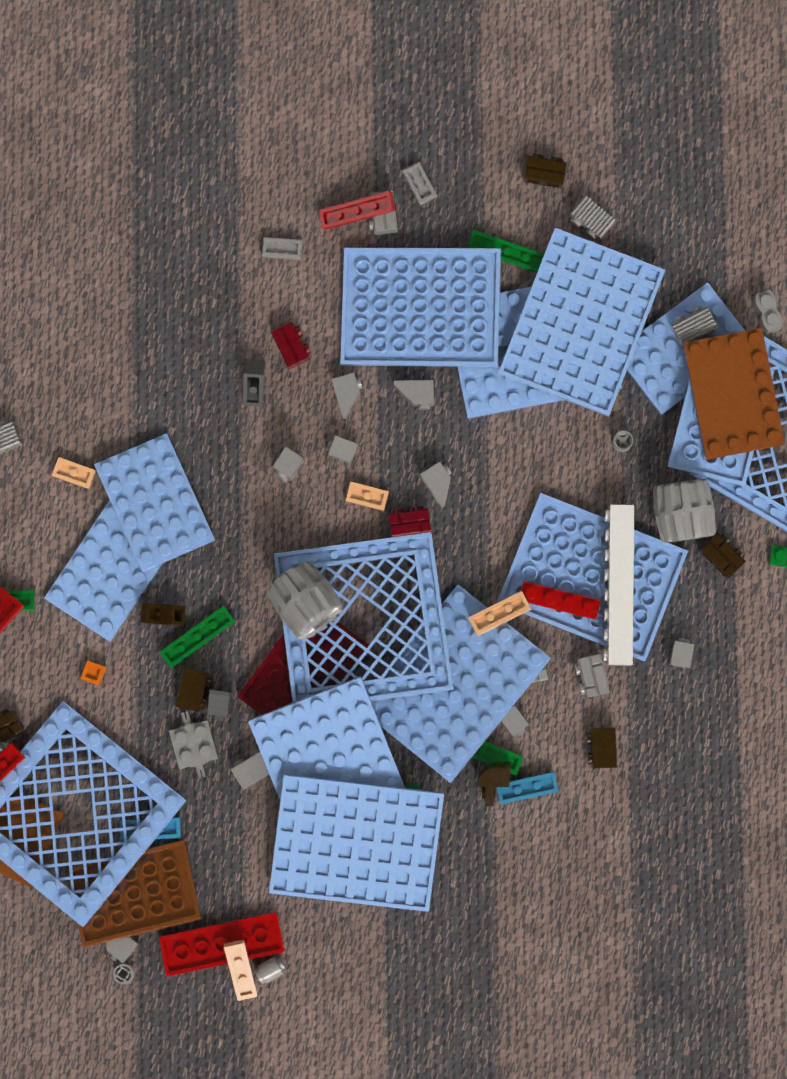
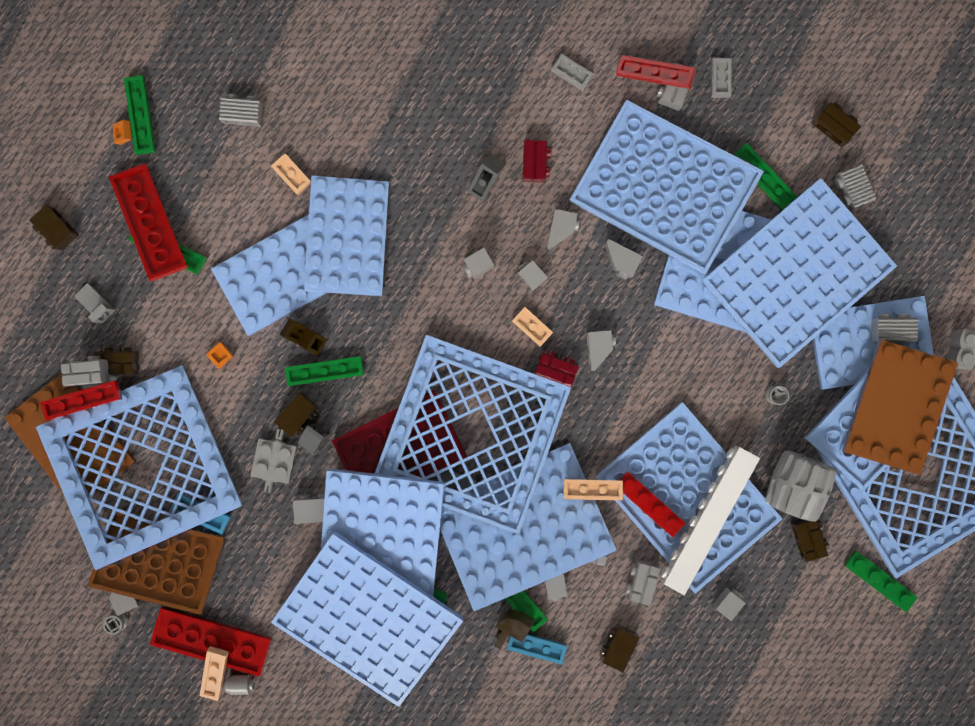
camera: 20 degrees right, 5 degrees up
(304, 600) = (429, 392): light grey wheel -> none

